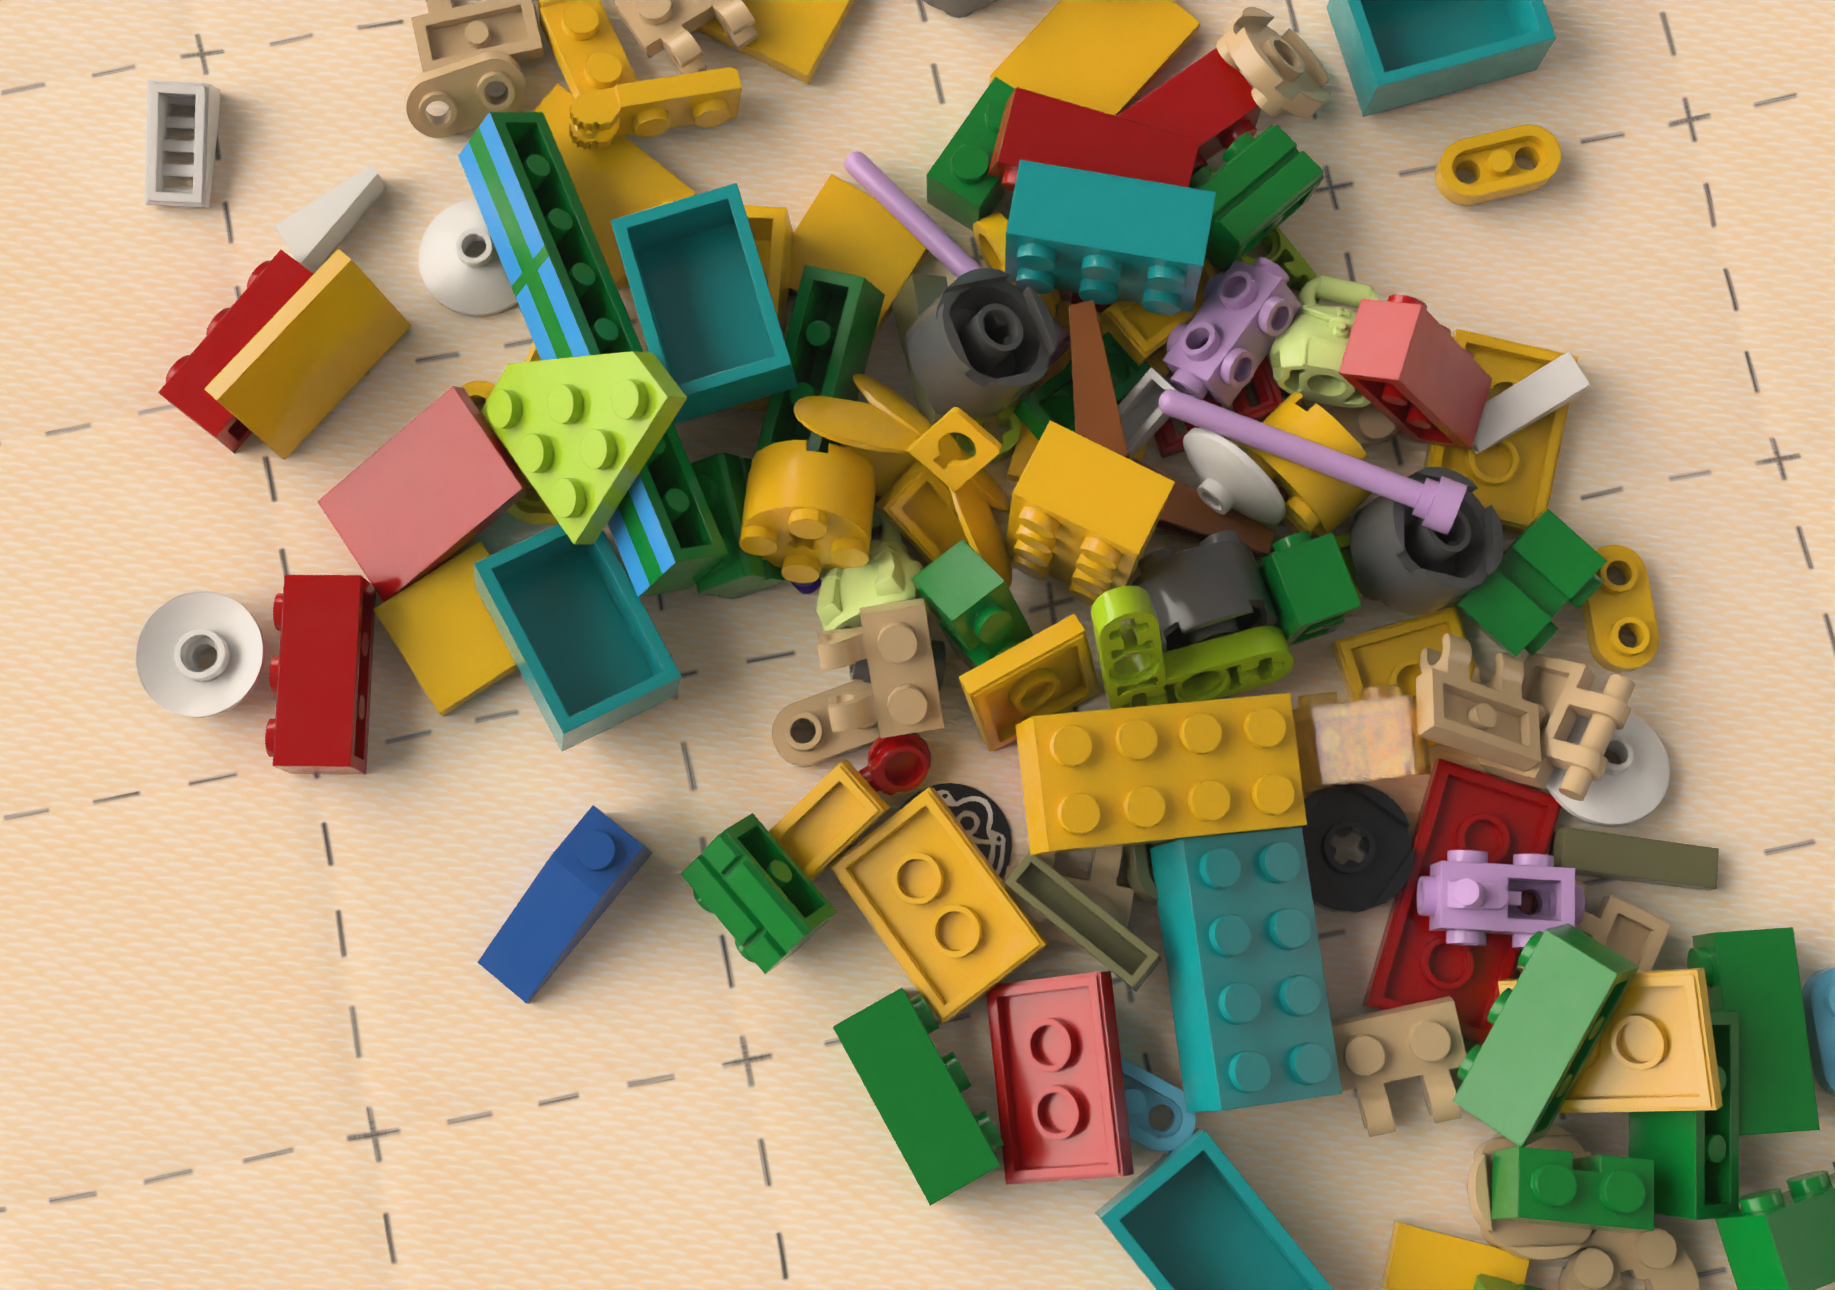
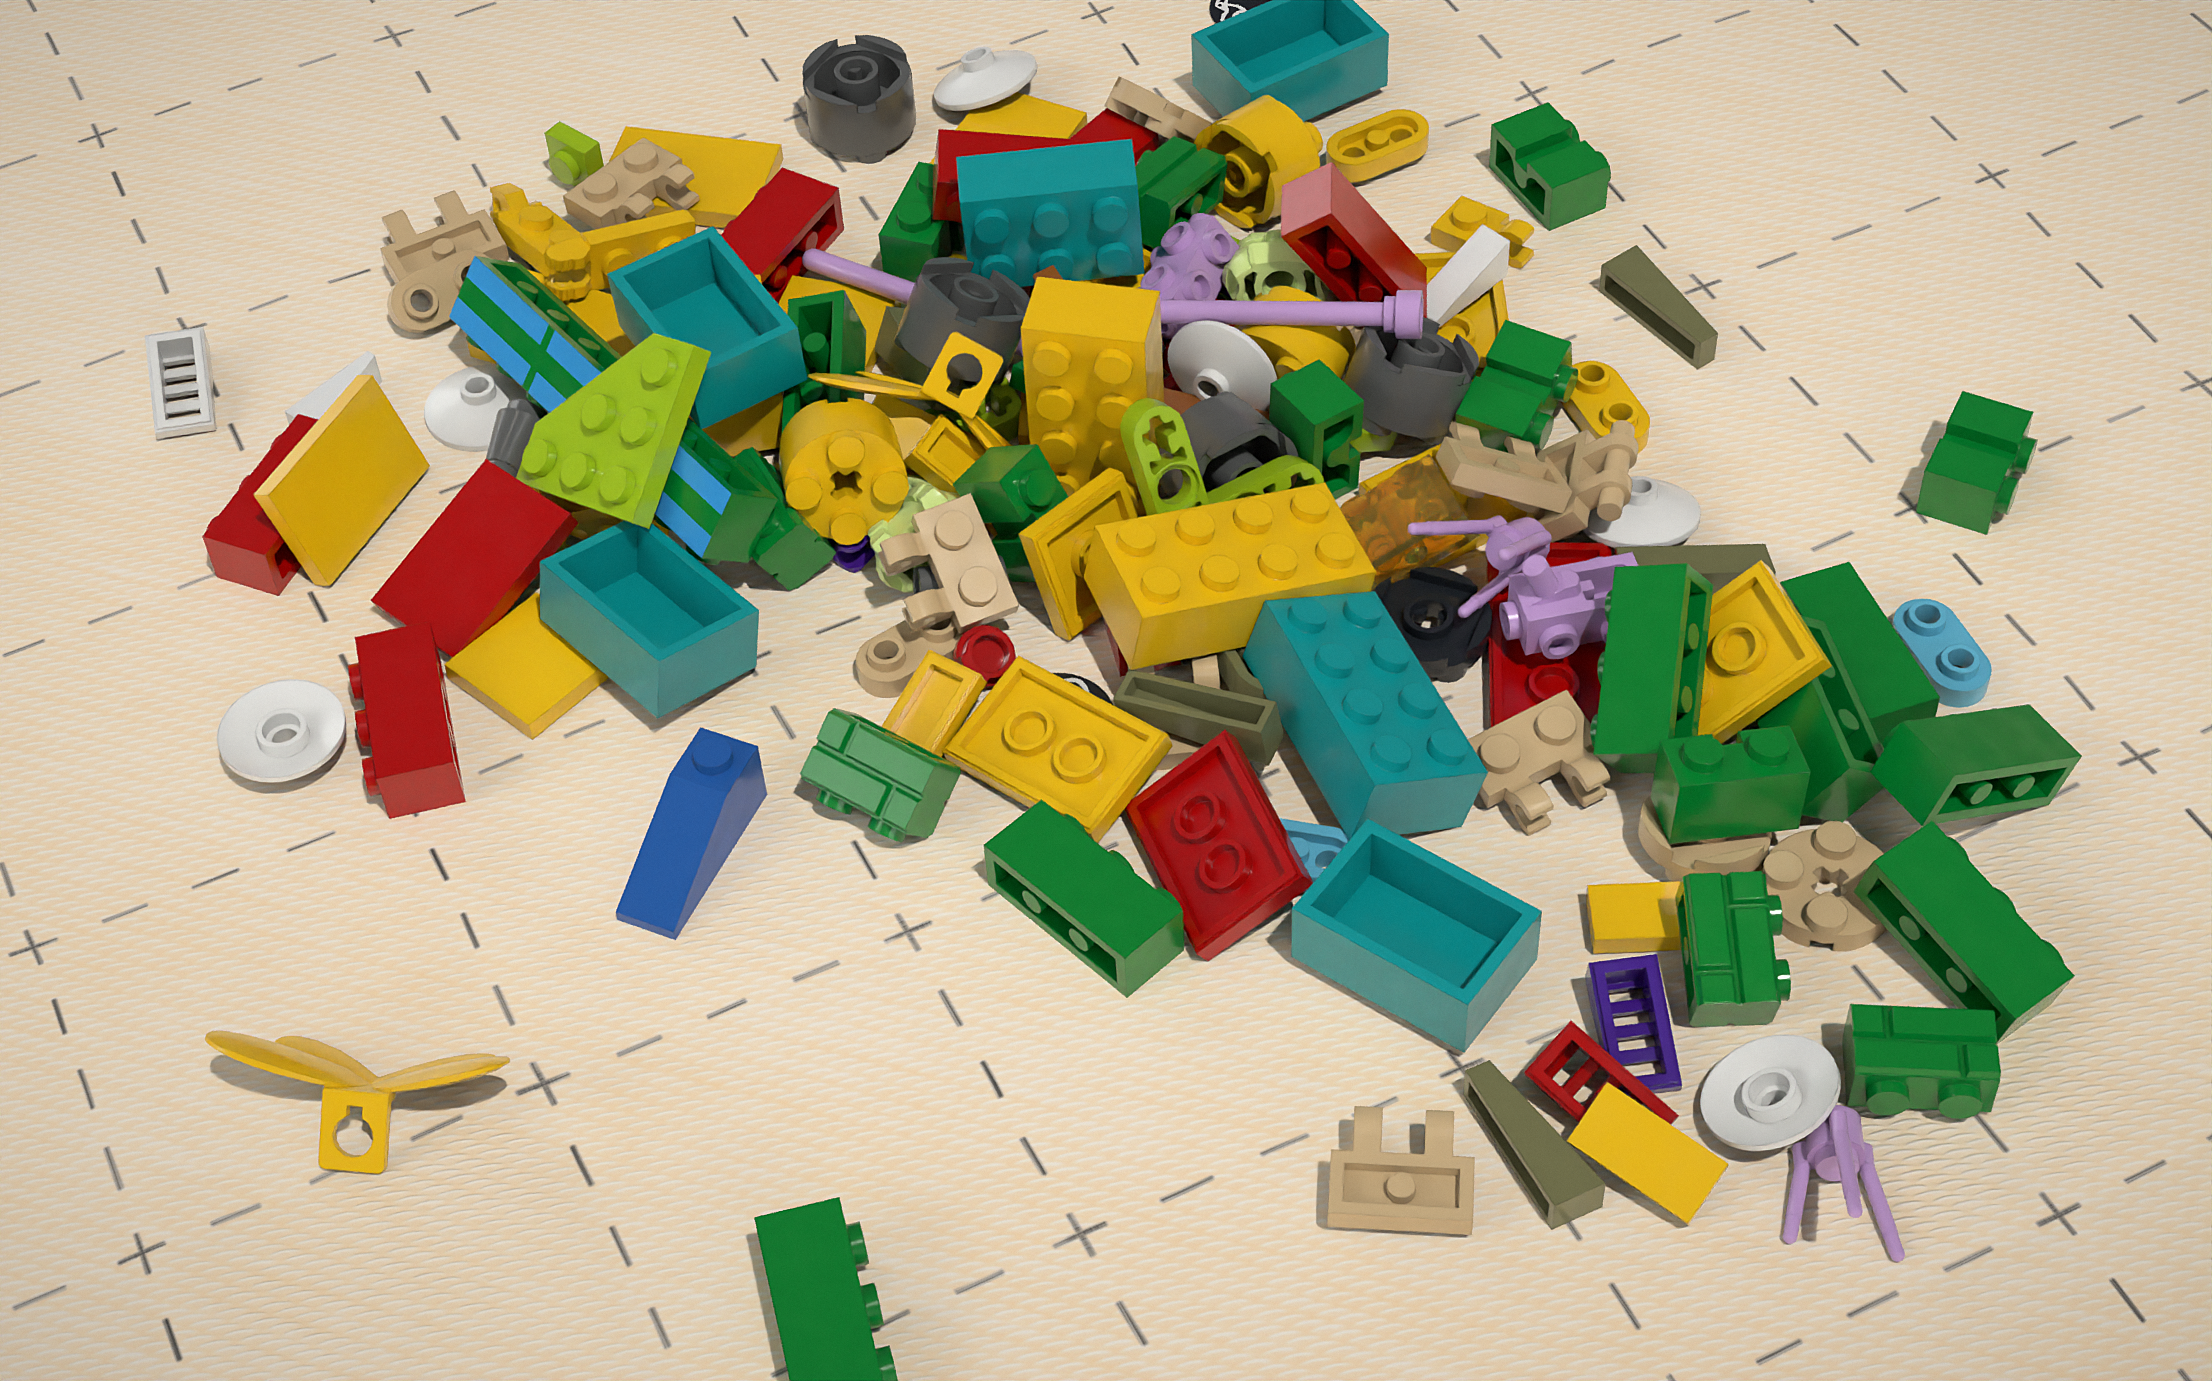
camera: 15 degrees left, 30 degrees down
(175, 1081) = (349, 1084): none -> yellow piece
(495, 335) = (512, 433): none -> dark grey cone
(813, 128) = (784, 223): none -> red brick
(1368, 172) = (1263, 150): none -> yellow brick
(1461, 806) = (1506, 548): none -> lavender plant
(1565, 315) = (1467, 215): none -> yellow plate
(1671, 255) = (1549, 166): none -> green brick
(1719, 481) = (1658, 306): none -> olive piece

